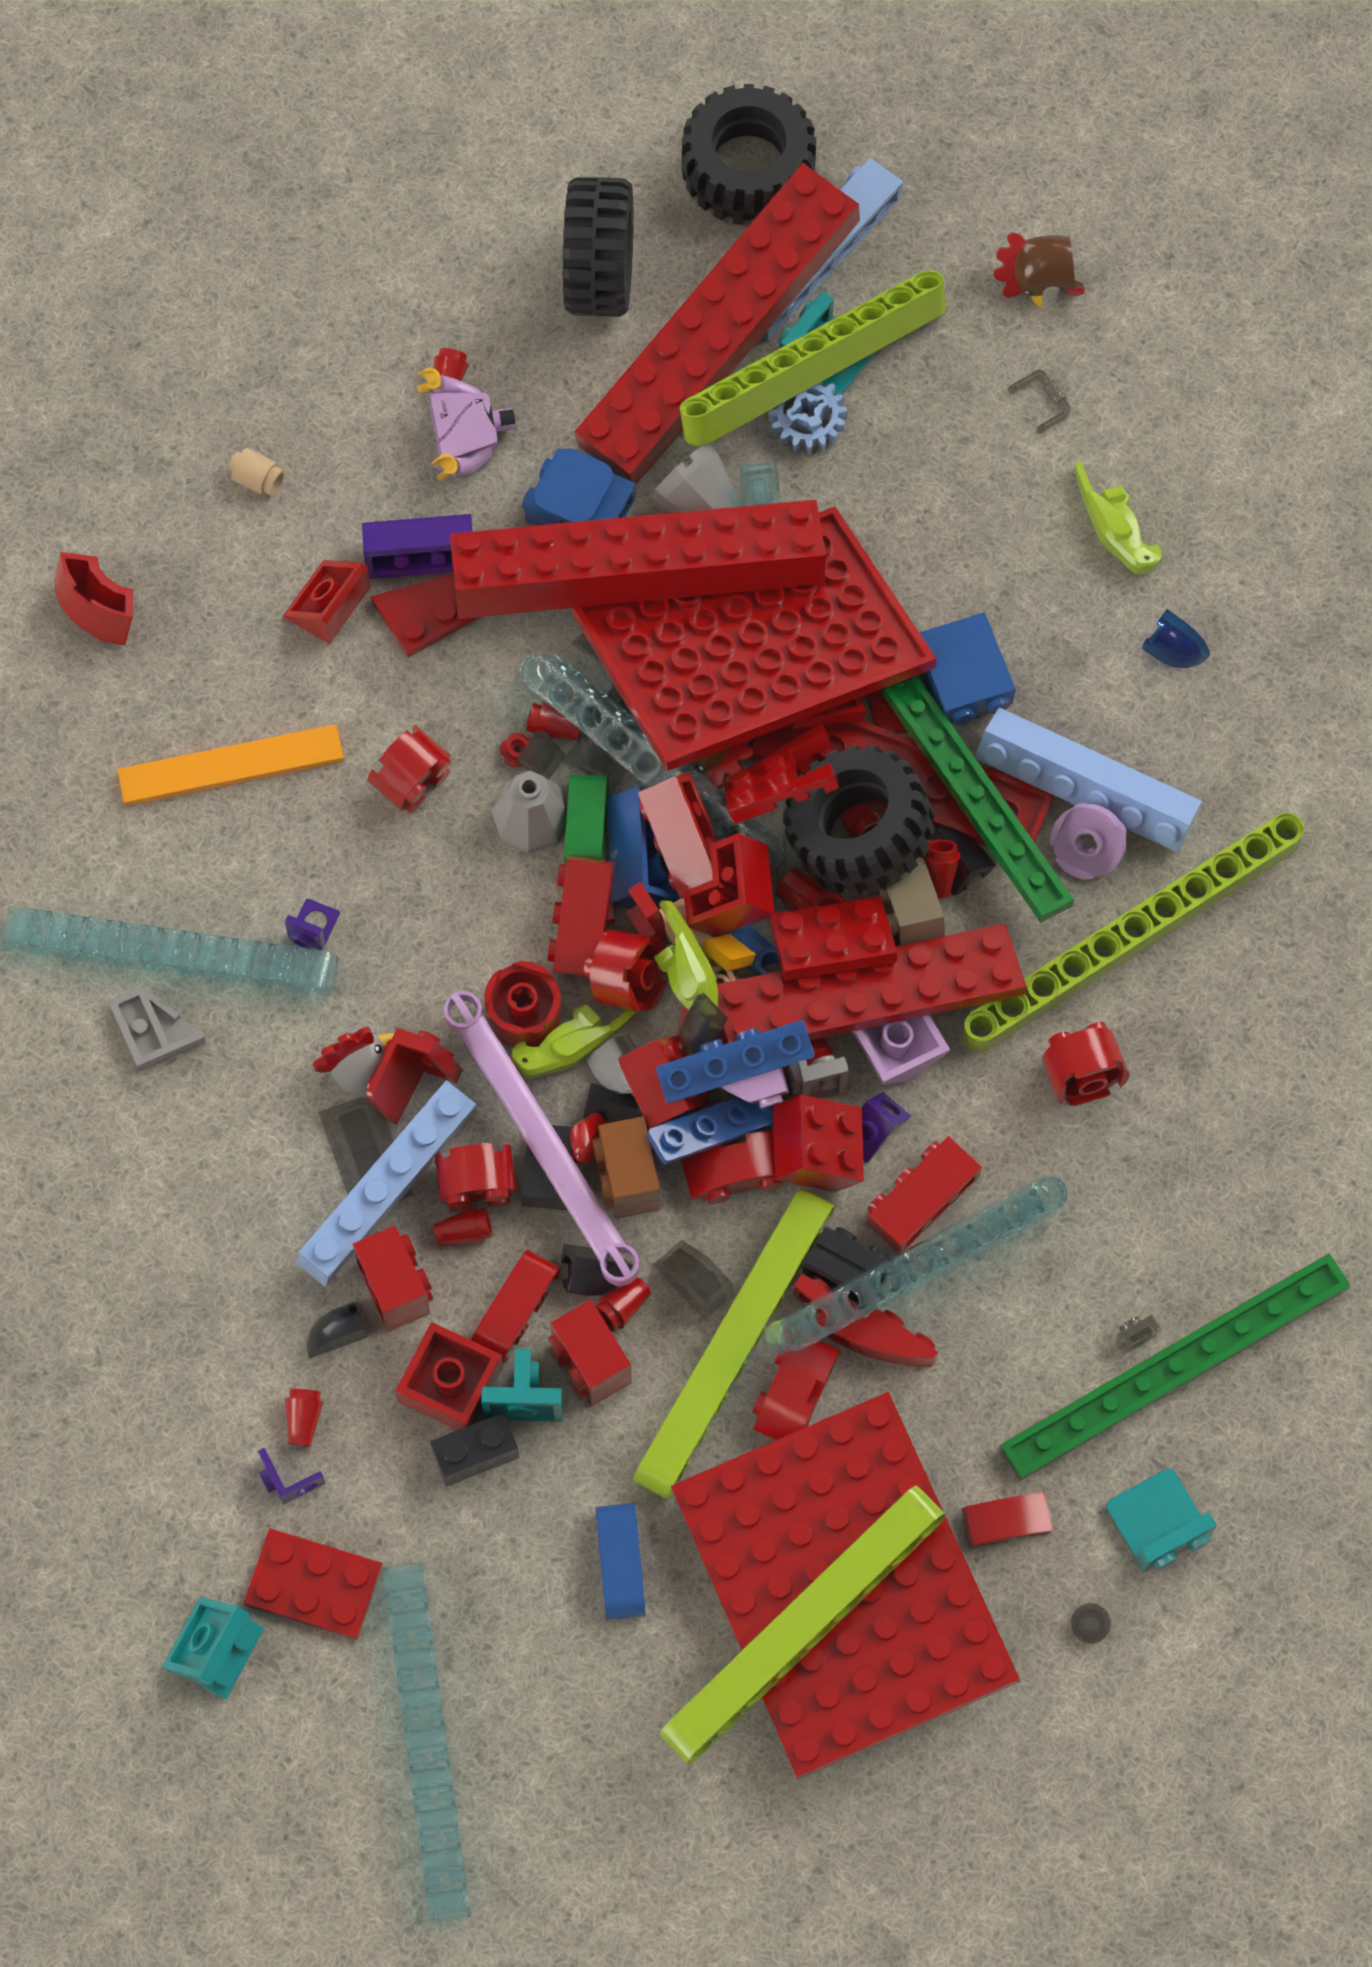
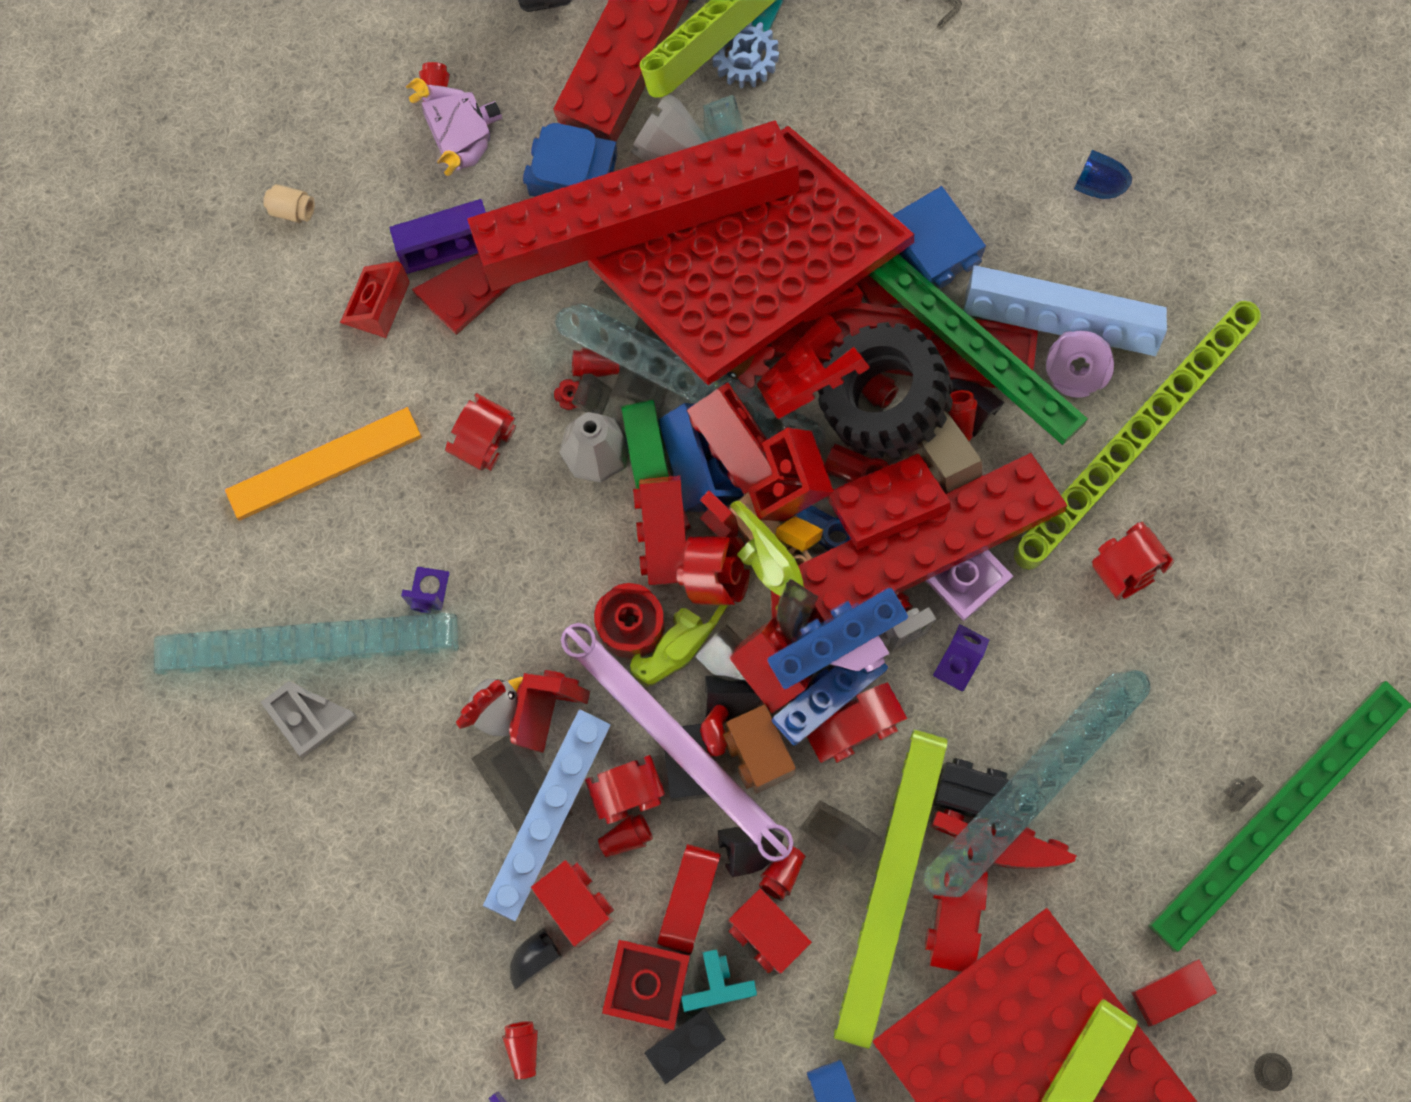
camera: 10 degrees left, 5 degrees up
(92, 598) = (169, 344): red brick -> none
(818, 1143) = (921, 688): red brick -> none
(922, 1194) = (1021, 710): red brick -> none
(1117, 525) = (1026, 89): lime animal -> none
(1159, 1520) = (1310, 963): teal bracket -> none

